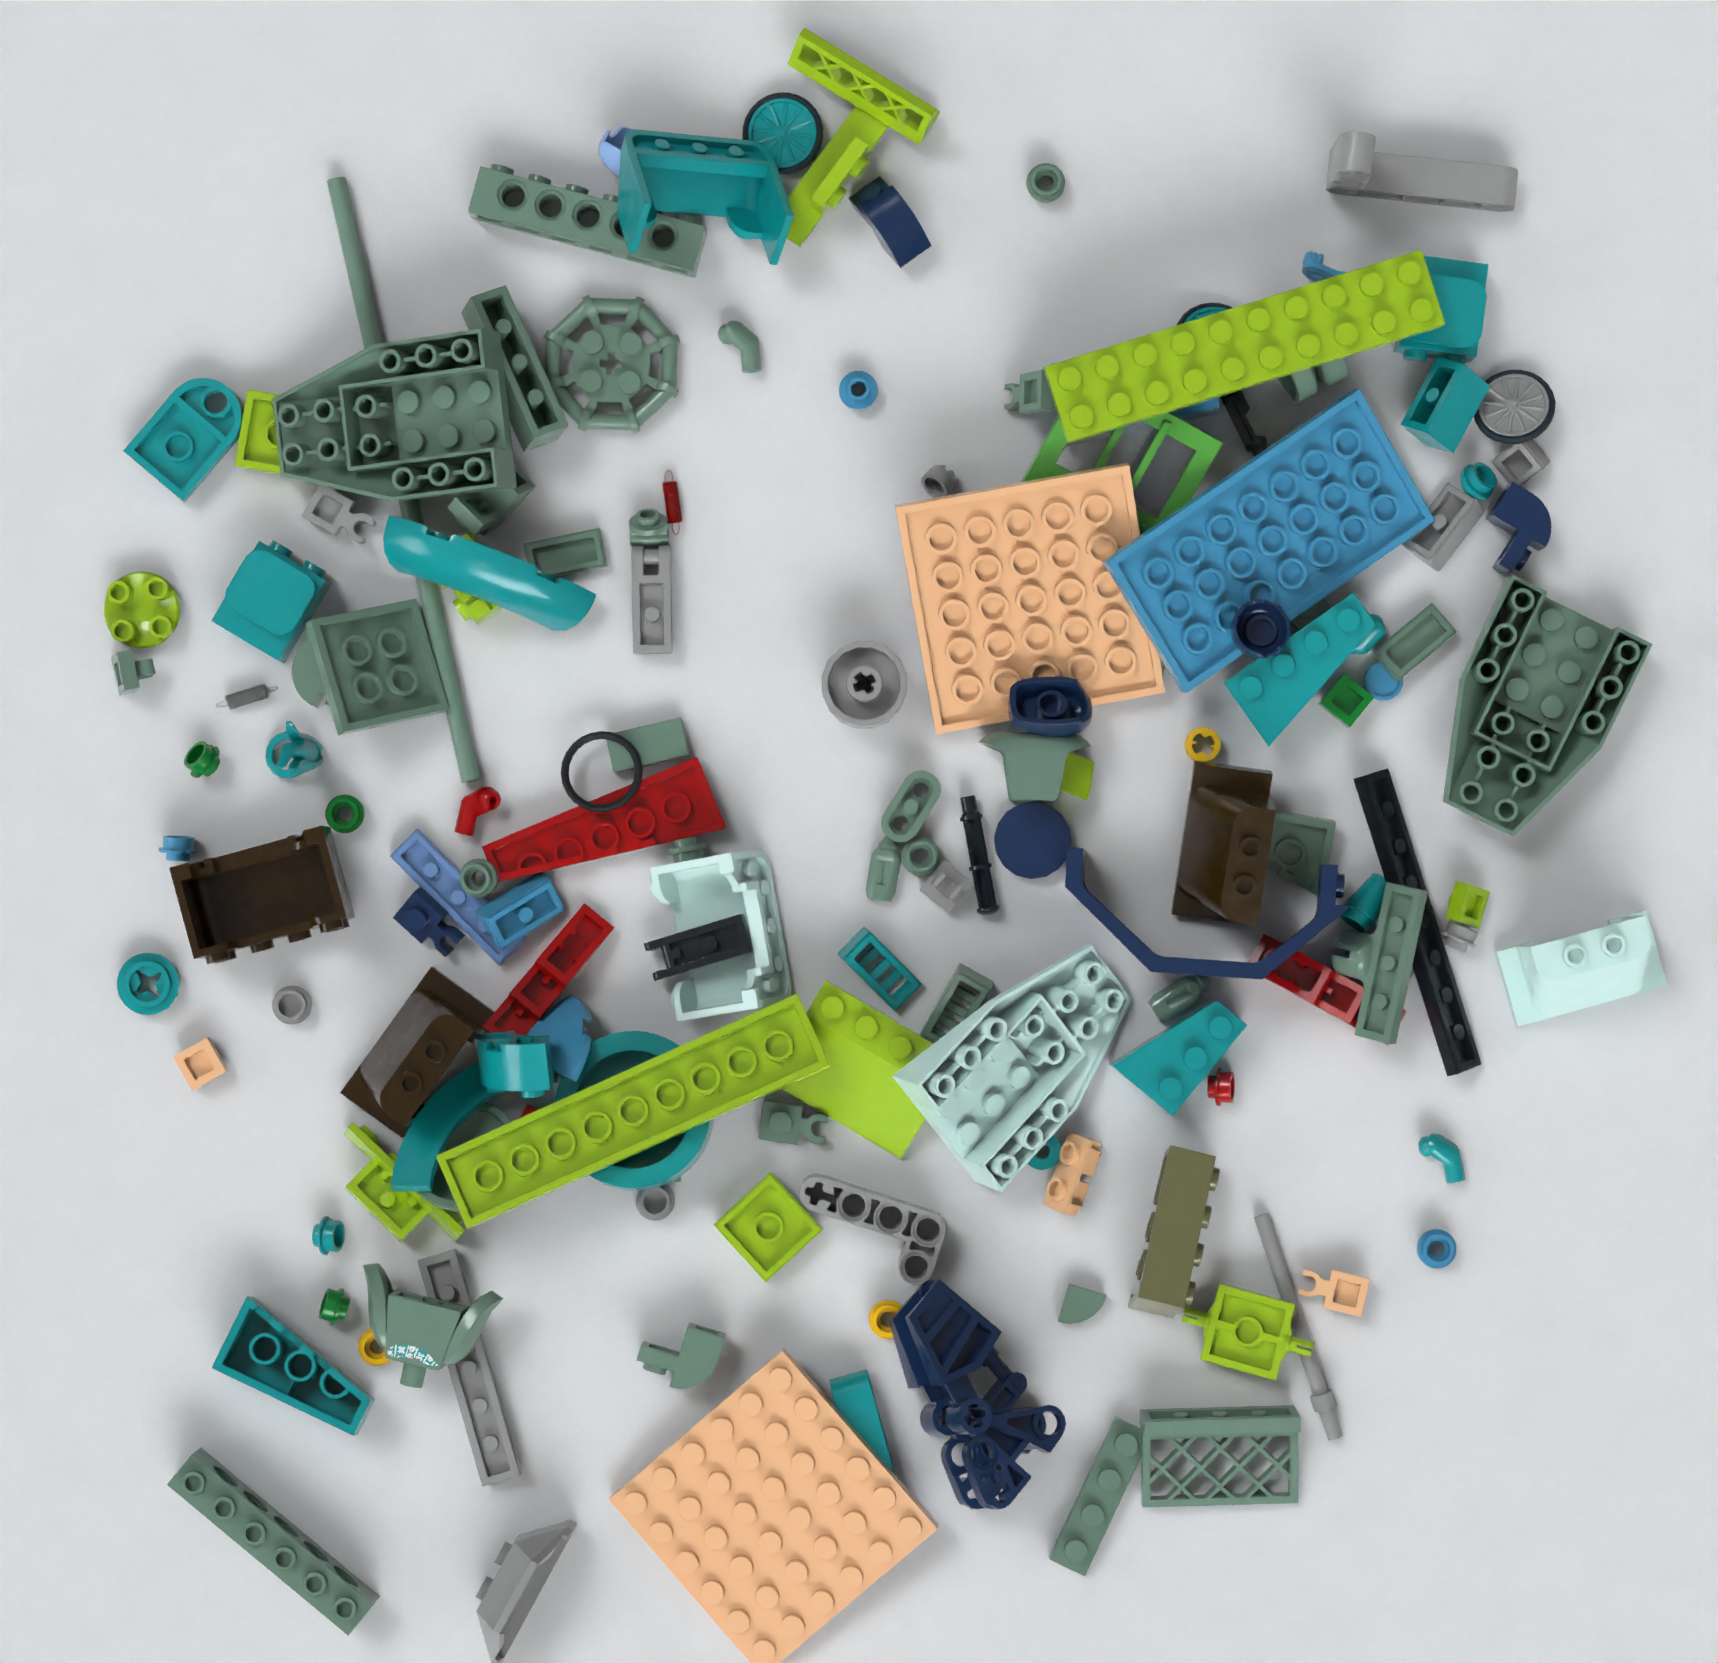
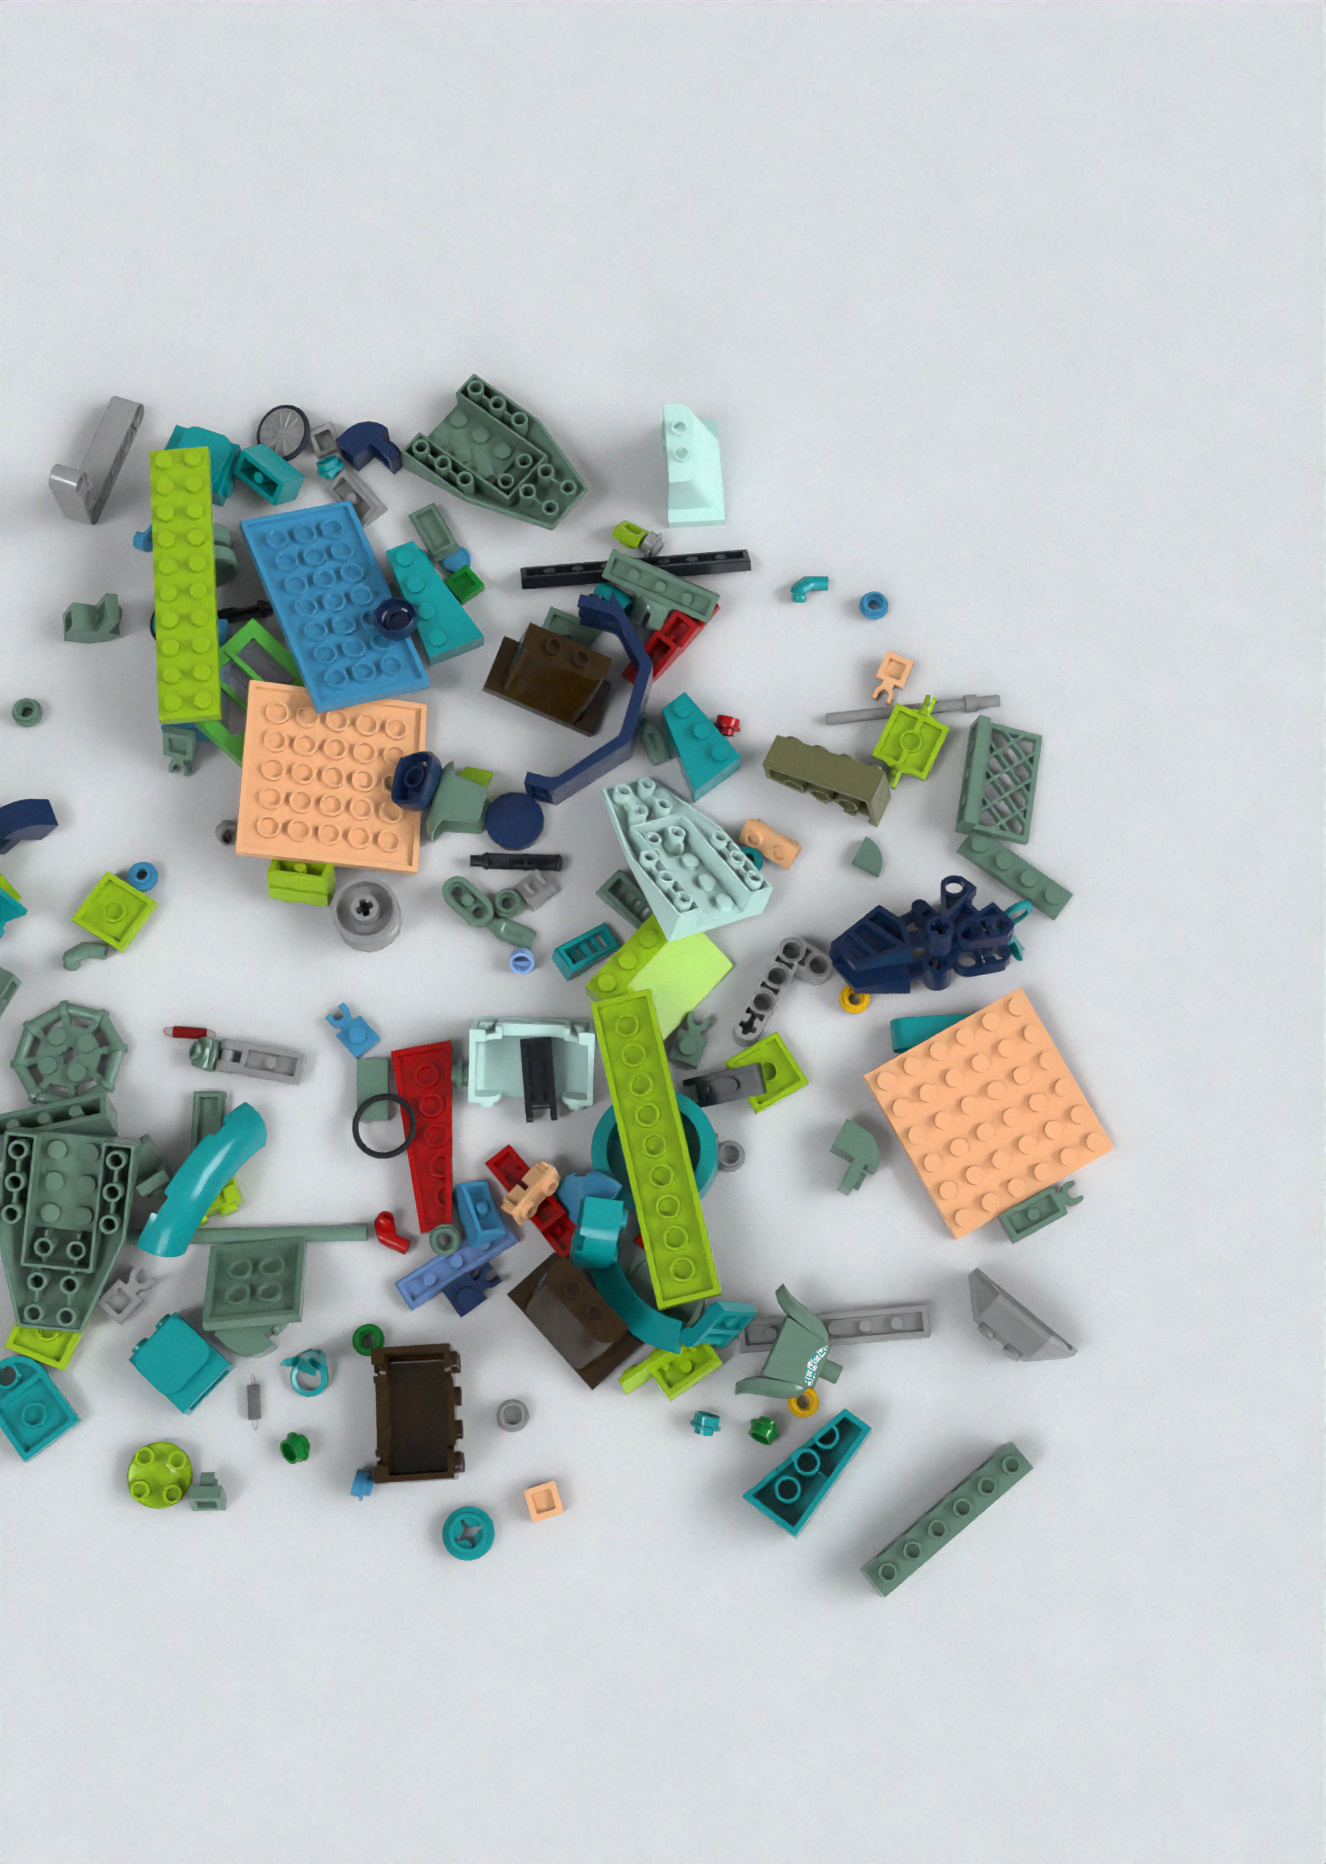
camera: 85 degrees left, 15 degrees down
(438, 1231) = (720, 1324): none -> teal plate
(540, 965) = (542, 1183): none -> light nougat hinge
(662, 1593) = (1037, 1212): none -> sand green plate
(712, 706) = (355, 1034): none -> dark azure plate
(737, 1182) = (728, 1085): none -> black hinge
(803, 369) = (114, 912): none -> lime plate
(848, 891) = (521, 960): none -> light blue hinge
(887, 594) = (302, 882): none -> lime brick
(1028, 1494) = (1014, 945): none -> teal piece
(1185, 231) = (93, 622): none -> sand green brick
(1204, 732) = (463, 686): yellow bush -> none

